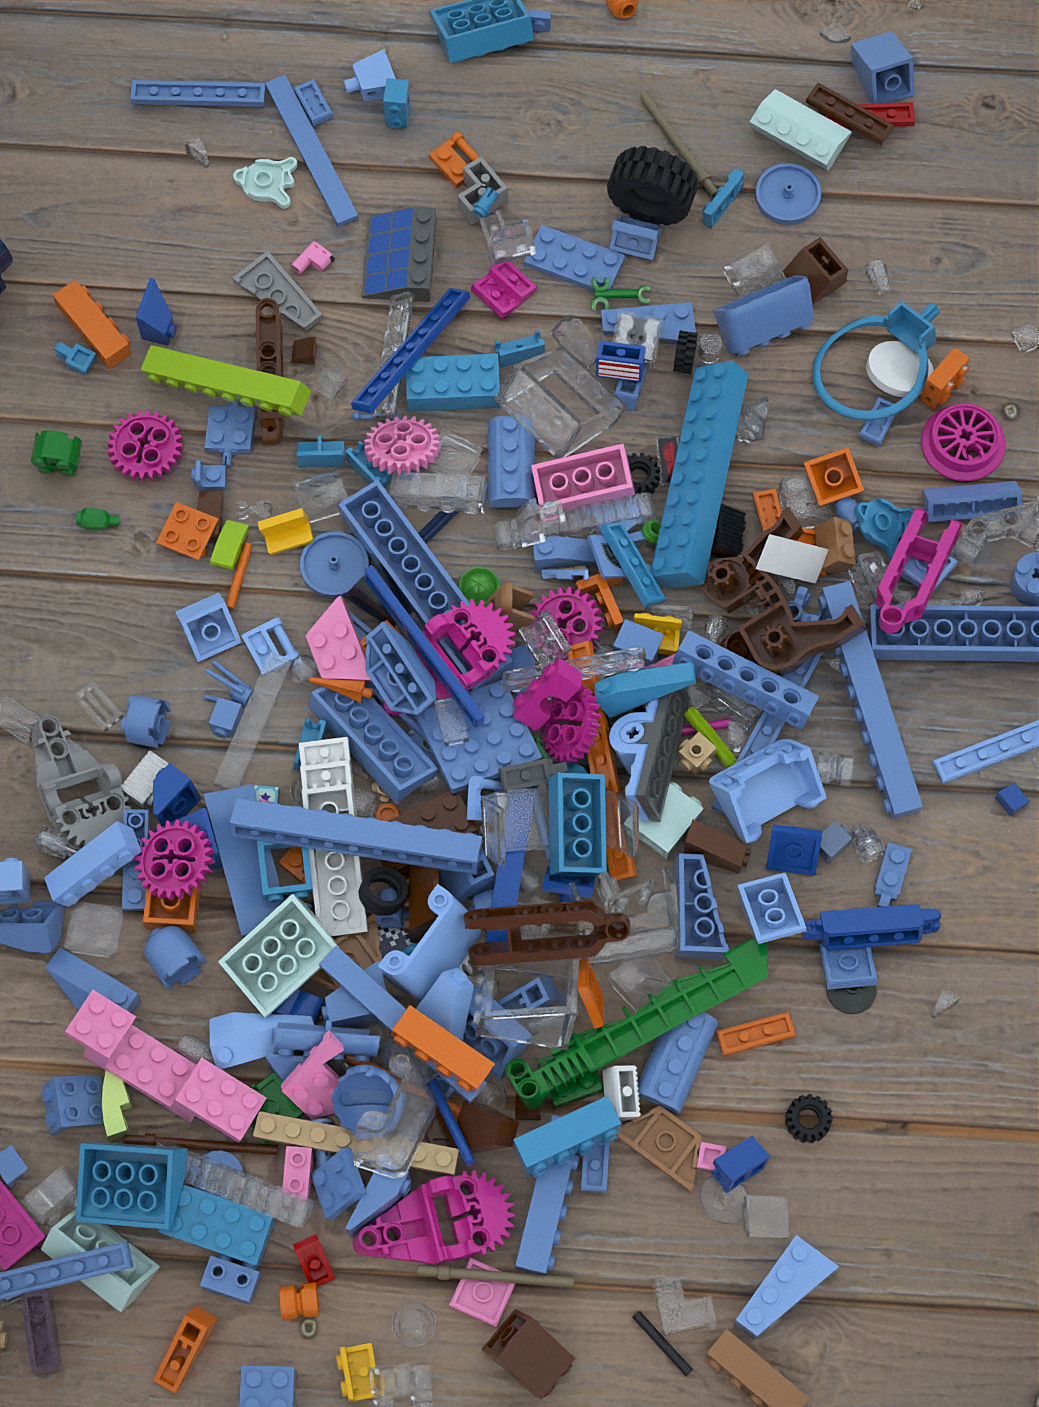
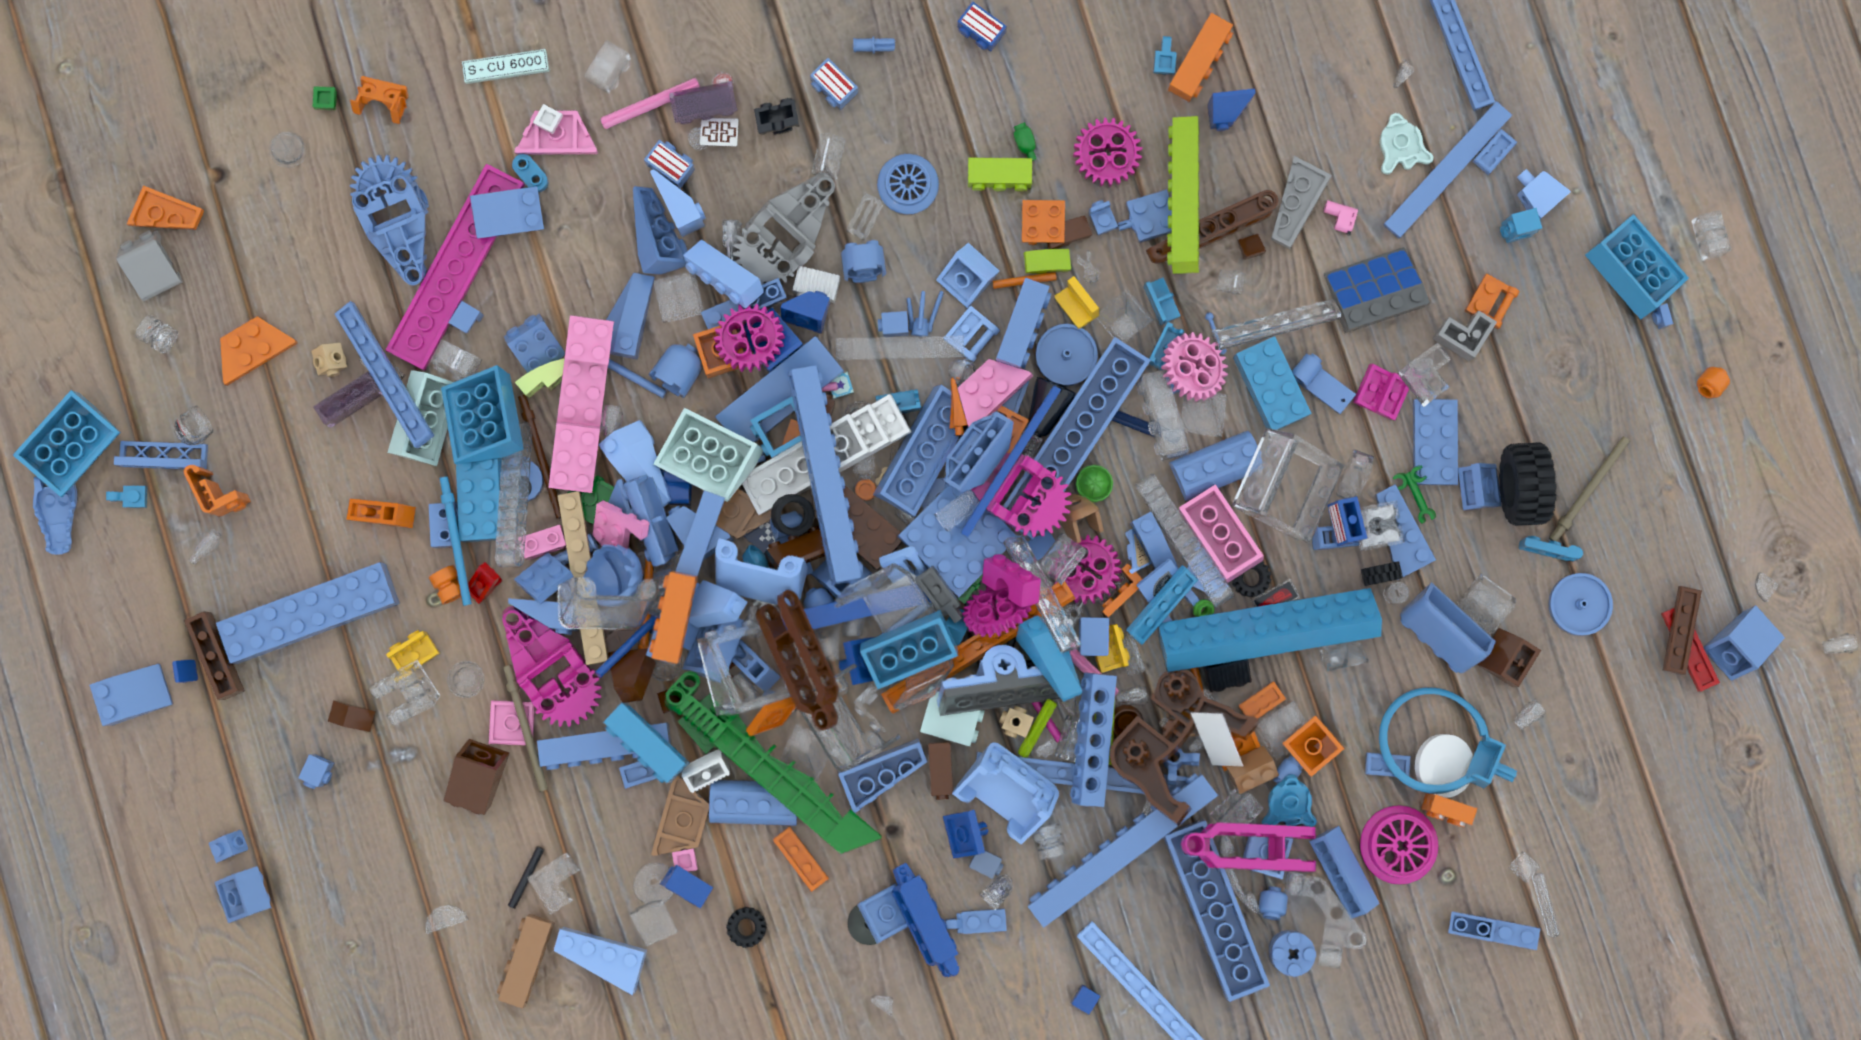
camera: 65 degrees right, 15 degrees up
(56, 452) = (1068, 81): green brick -> none
(90, 673) = (907, 206): none -> medium blue piece
(117, 555) = (999, 173): none -> lime brick
(164, 1006) = (636, 379): none -> medium blue bar
(204, 1258) = (447, 499): none -> dark azure bar
(283, 587) = (1024, 320): none -> medium blue brick
(410, 350) = (1283, 338): blue tile -> none
(472, 338) = (1321, 384): none -> medium blue door
(484, 204) = (1448, 344): dark azure pin -> none
(520, 349) = (1329, 429): dark azure hinge -> none
(533, 517) = (1164, 507): clear brick -> none
(771, 908) = (901, 835): light blue slope -> none
(800, 129) = (1648, 592): light aqua slope -> none
(979, 577) = (1273, 903): none -> medium blue head

